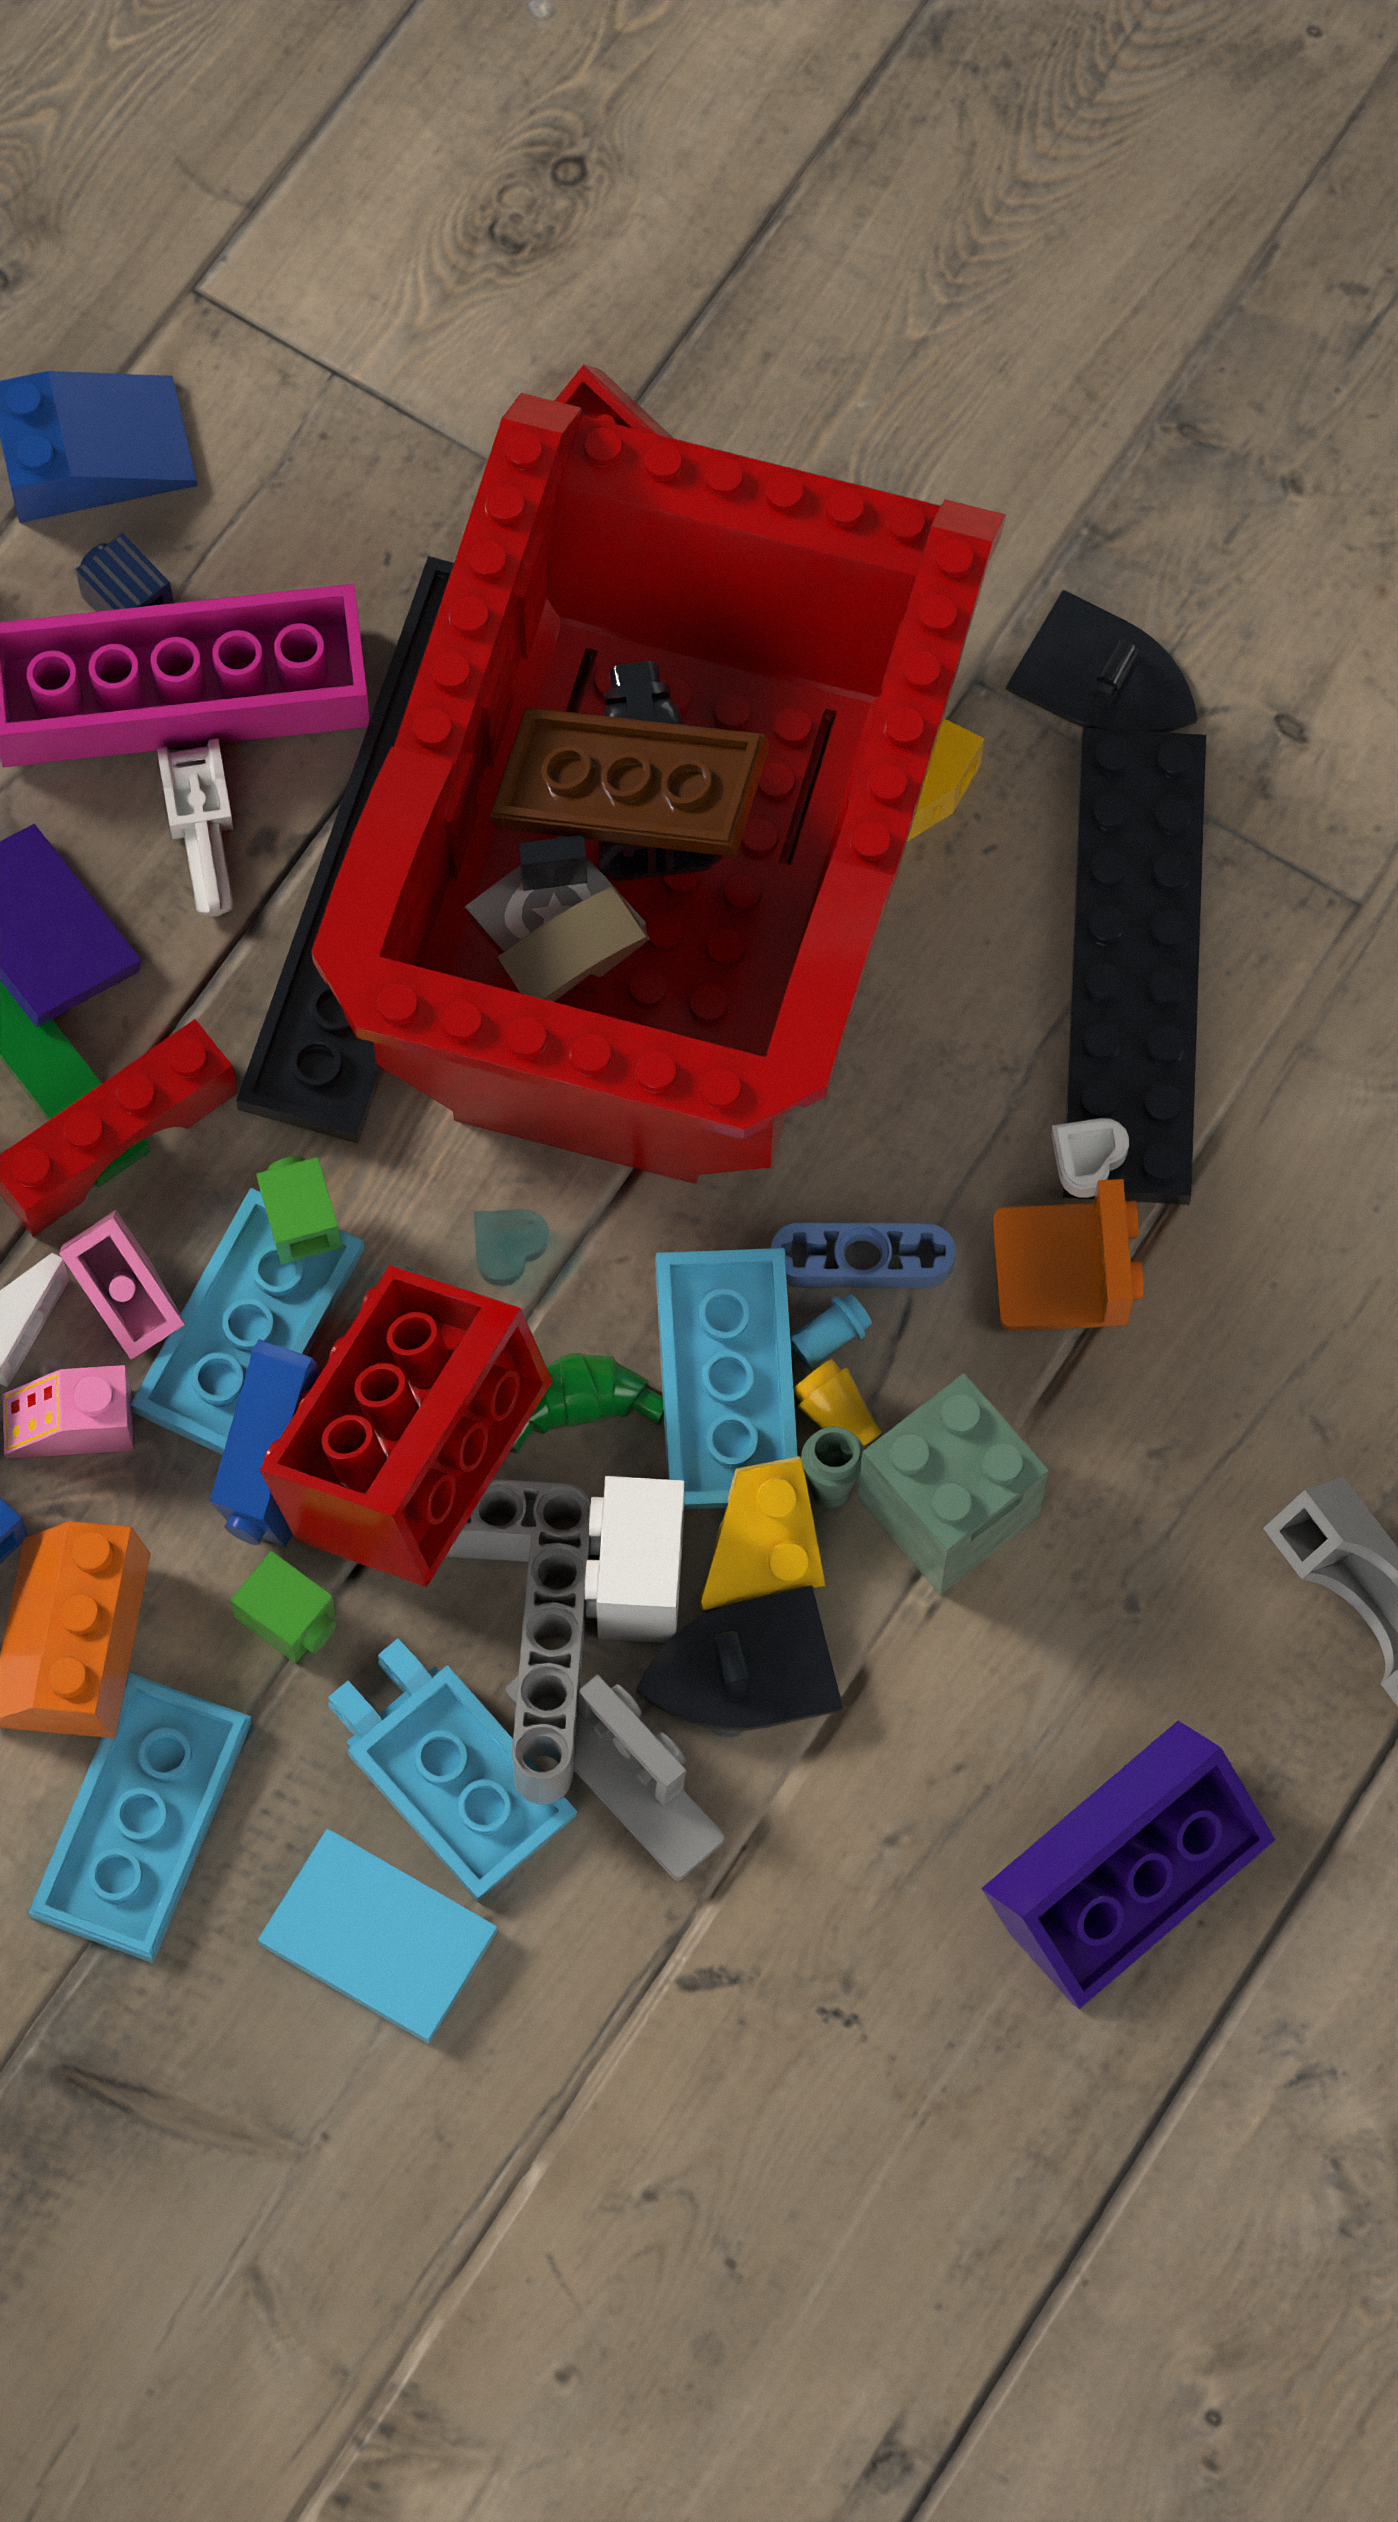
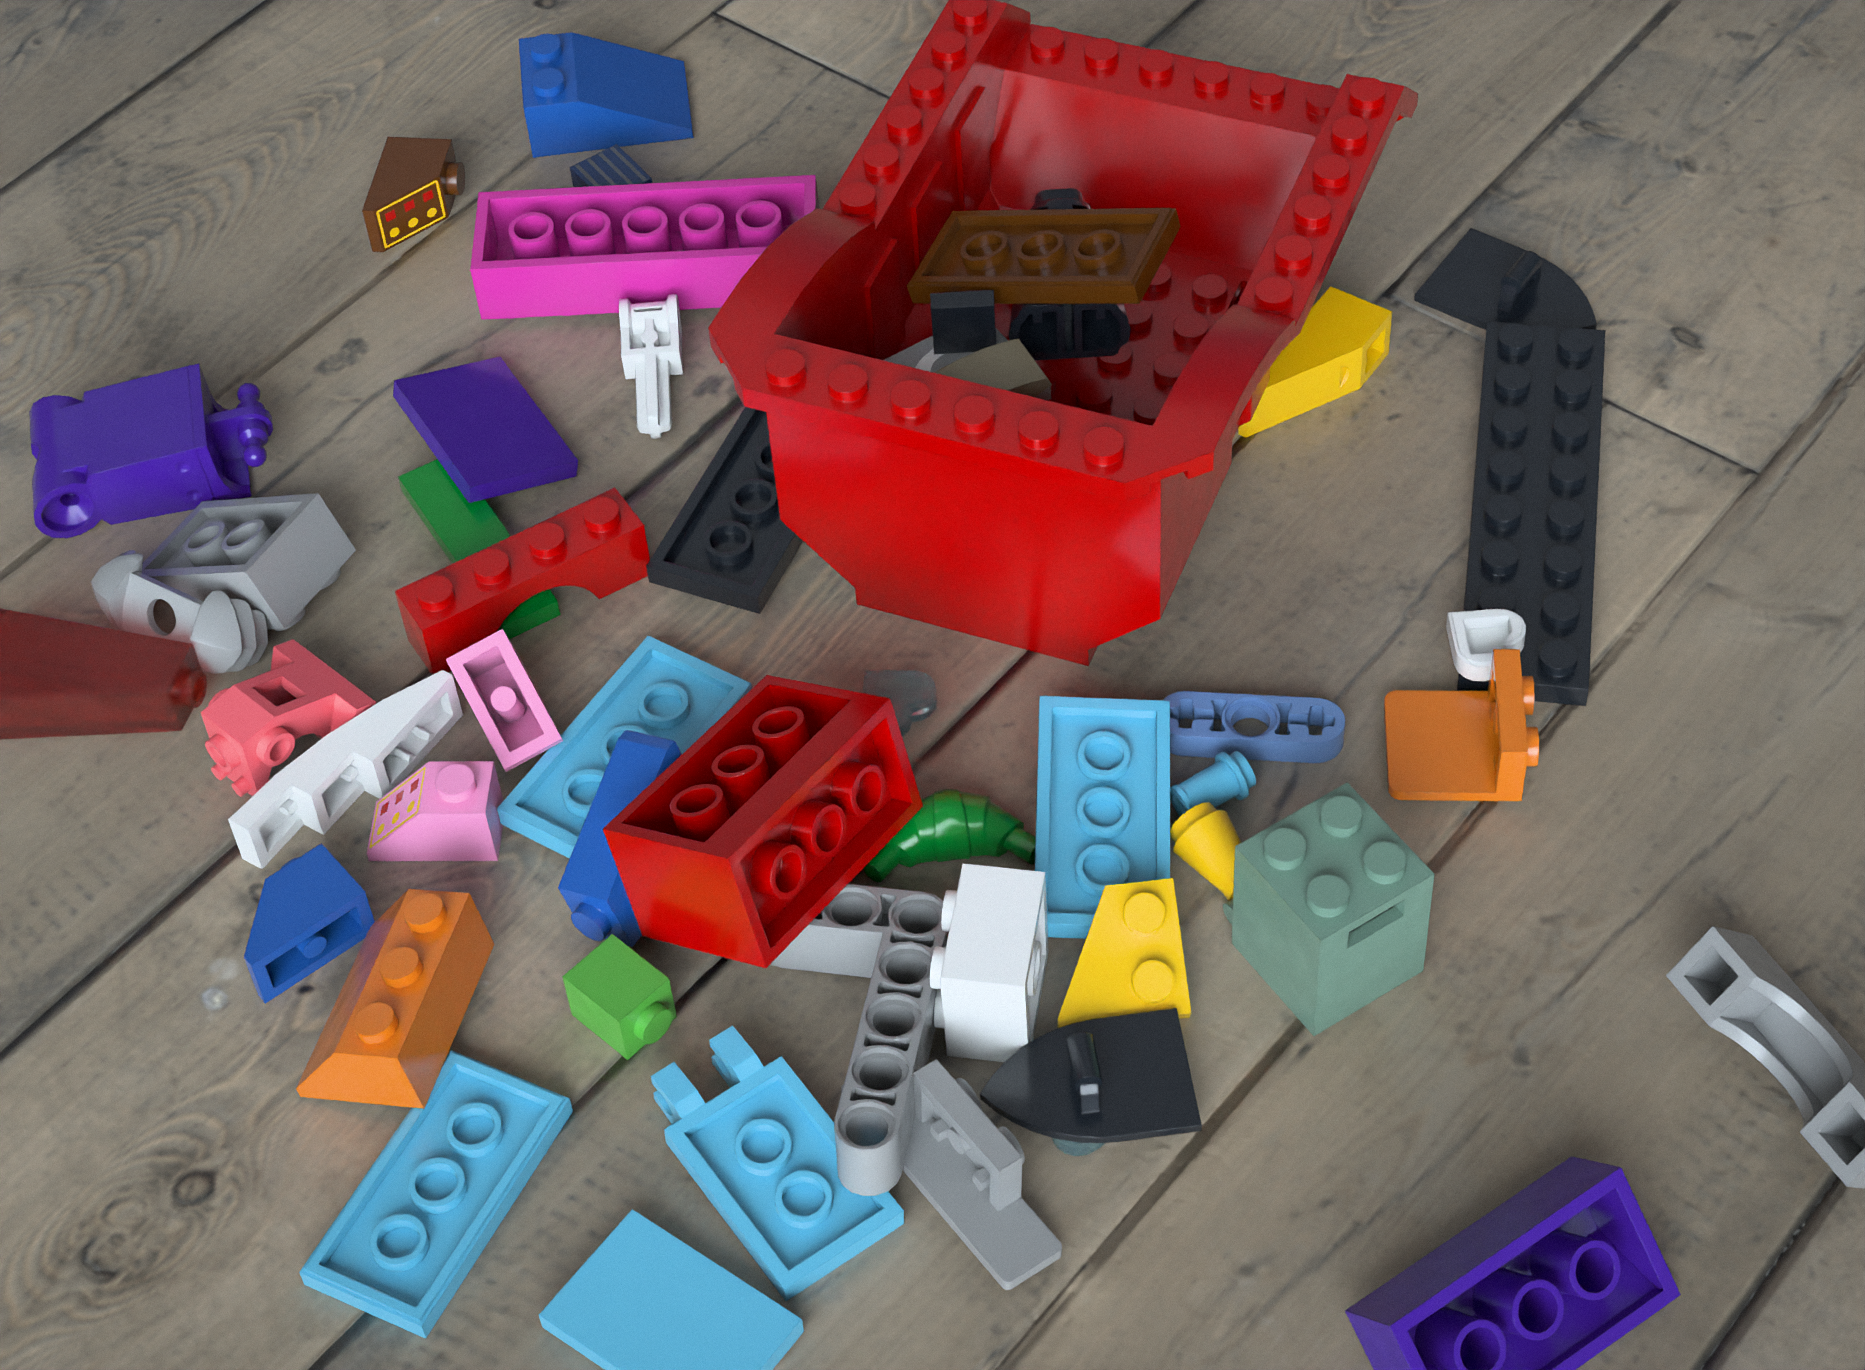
camera: 10 degrees right, 20 degrees down
(299, 1208) = (689, 644): bright green brick -> none
(832, 1464) = (1205, 894): sand green cone -> none

